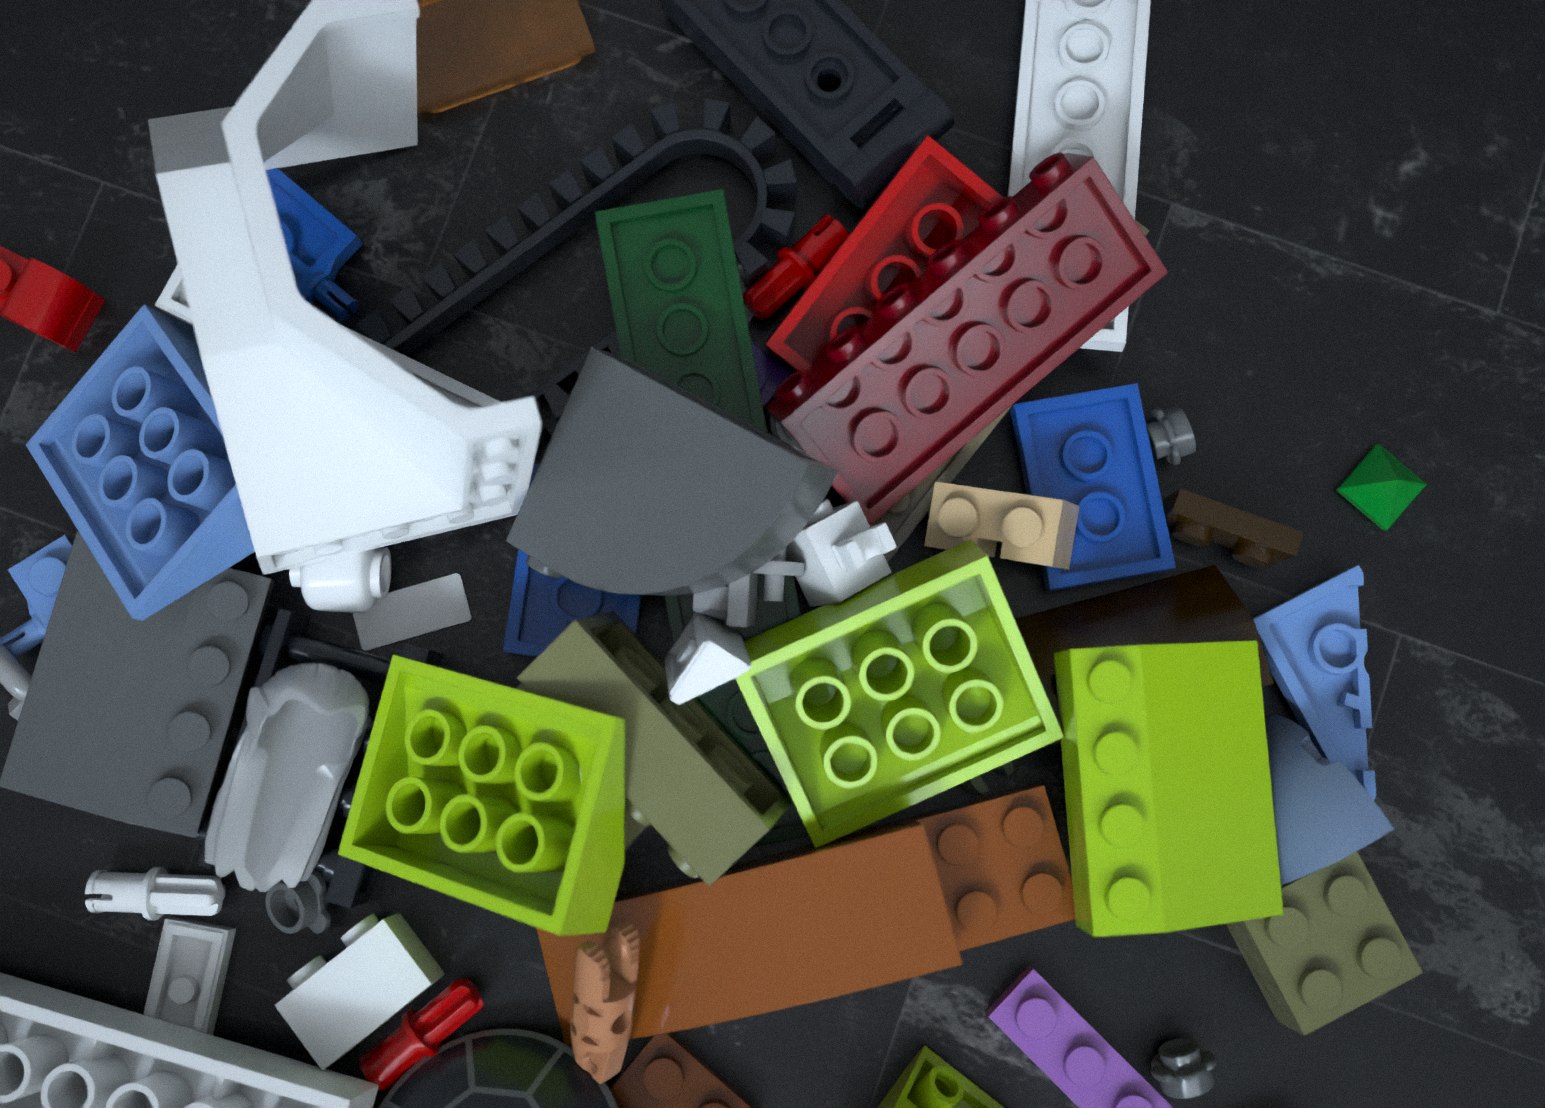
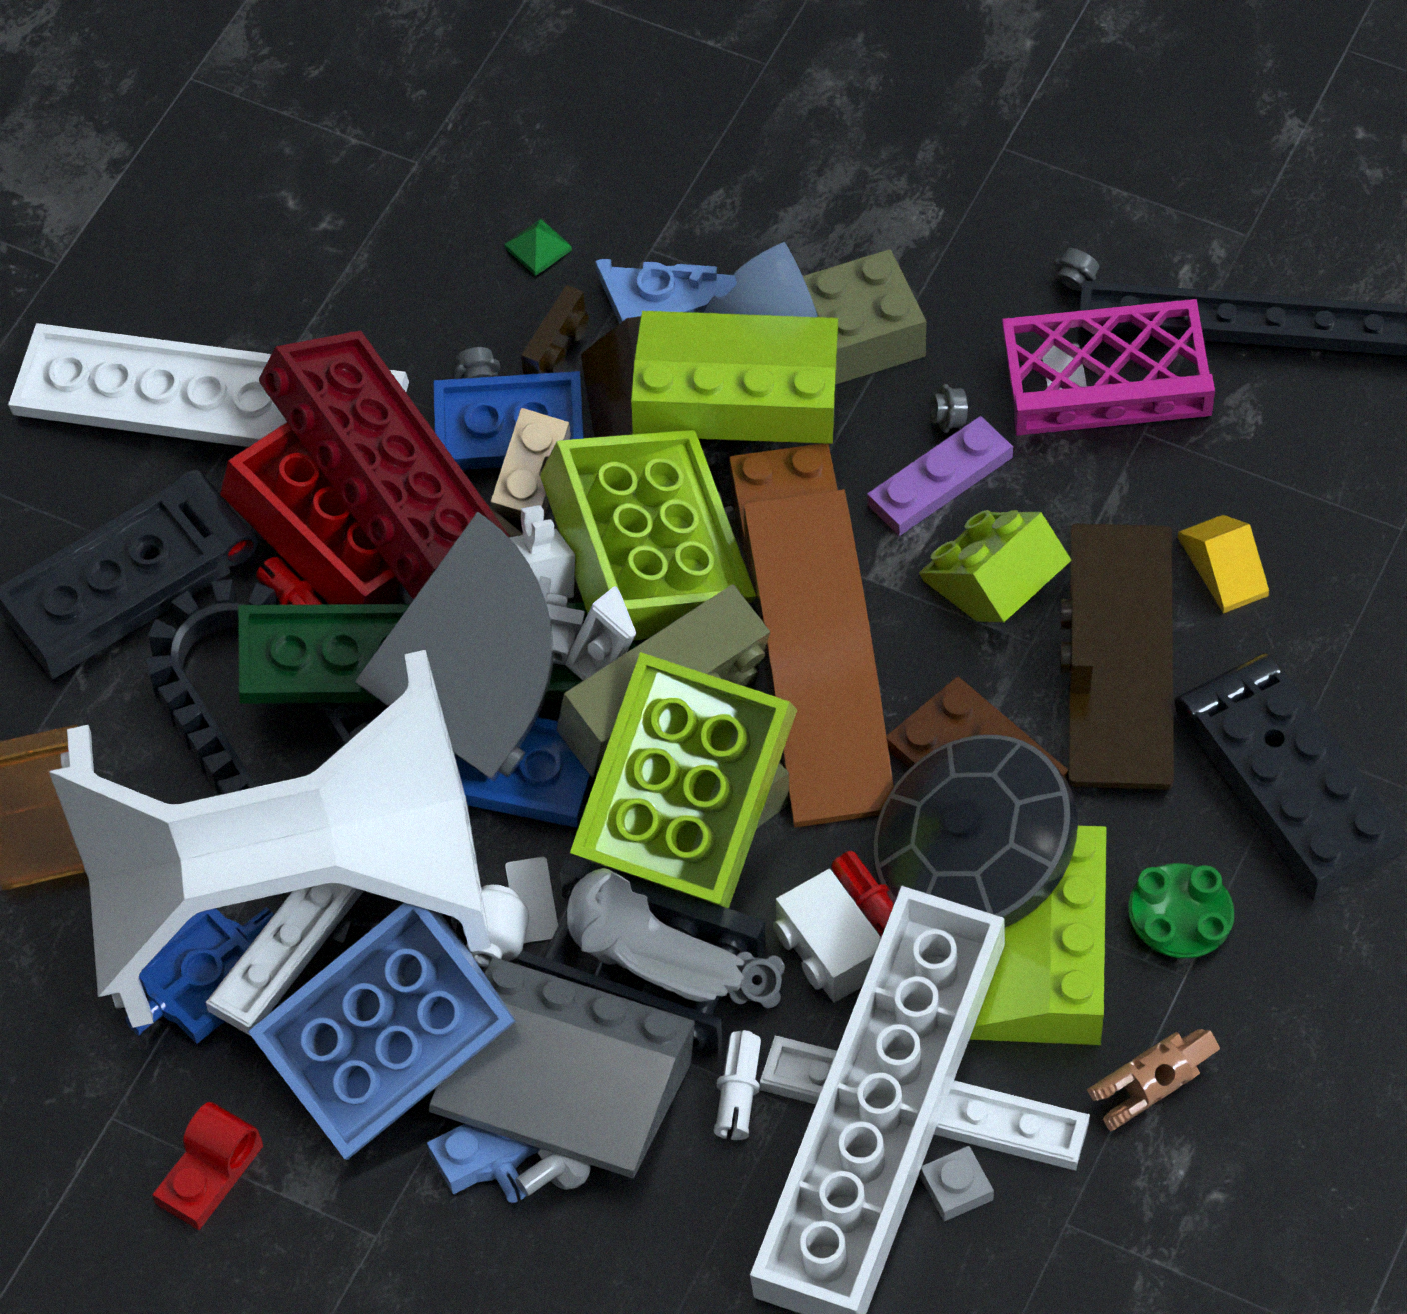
camera: 80 degrees left, 25 degrees down
(604, 1001) = (854, 737): nougat hinge -> none

